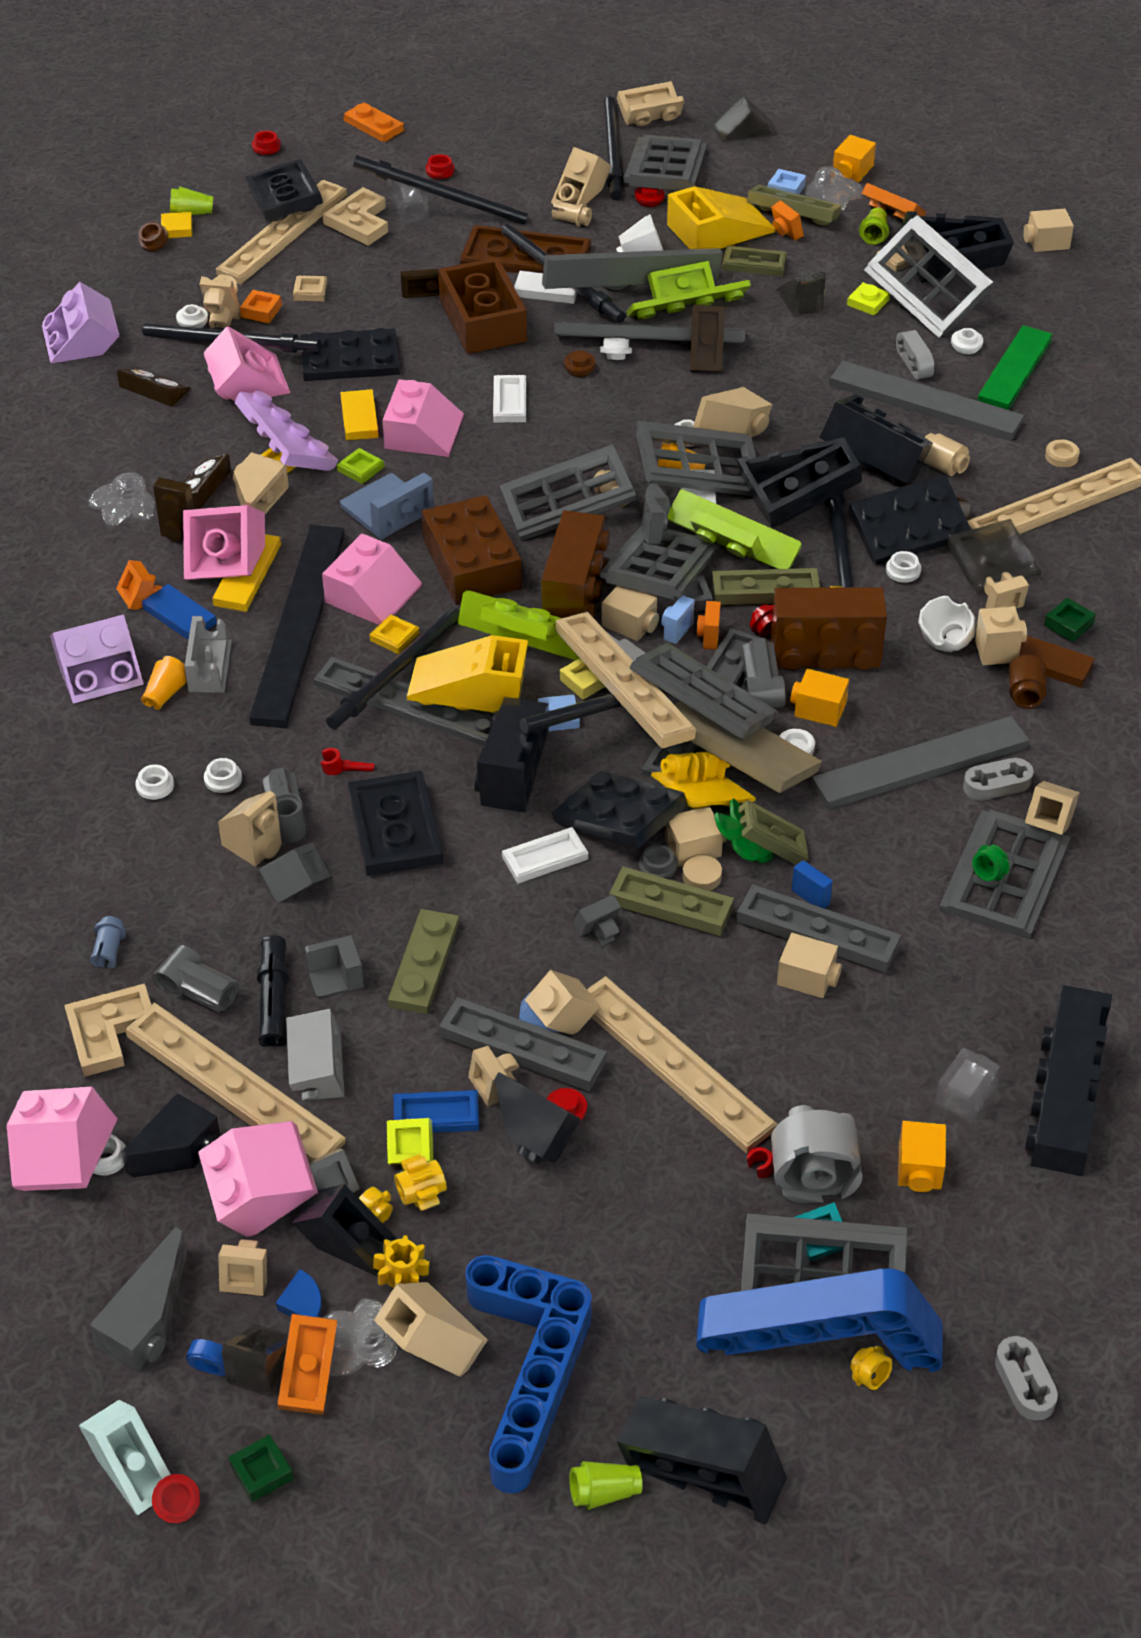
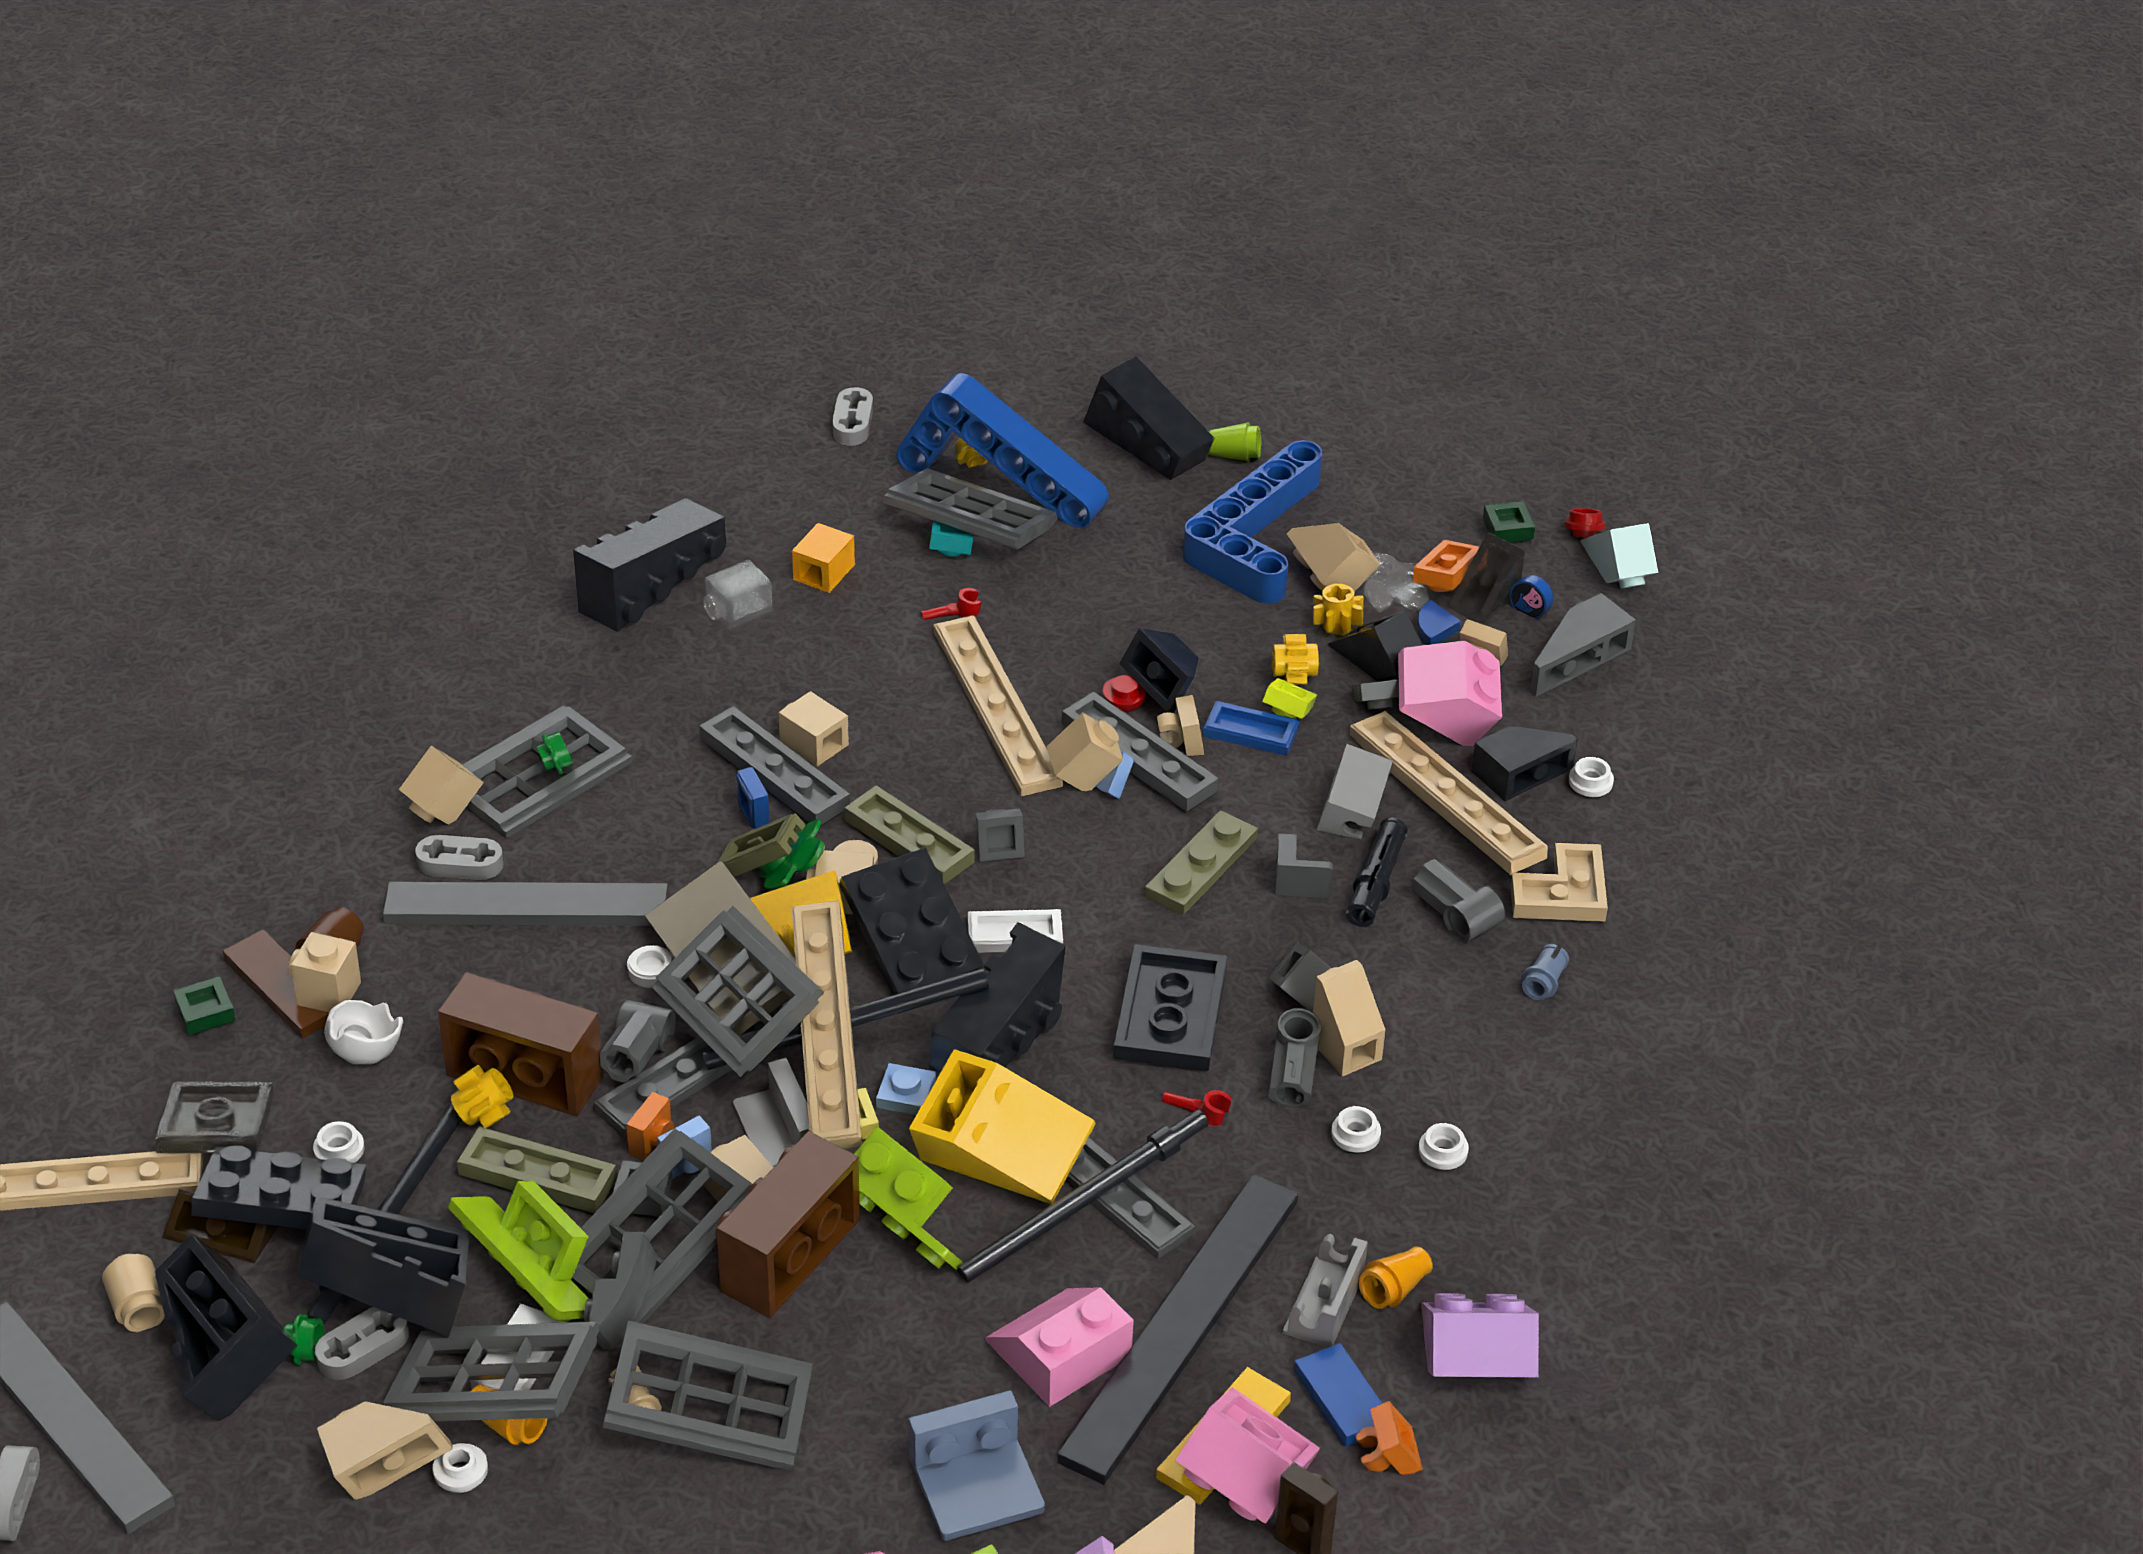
camera: 160 degrees left, 5 degrees down
(57, 1138) = (1631, 781): bright pink slope -> none
(378, 1203) = (1345, 659): yellow plate -> none
(394, 634) = (1059, 1266): yellow tile -> none
(471, 548) = (897, 1336): reddish brown brick -> none
(762, 620) = (573, 1118): red plate -> none
(816, 1155) = (925, 561): light grey brick -> none
(820, 697) = (589, 985): light orange brick -> none
(1006, 592) = (253, 1051): tan tile -> none

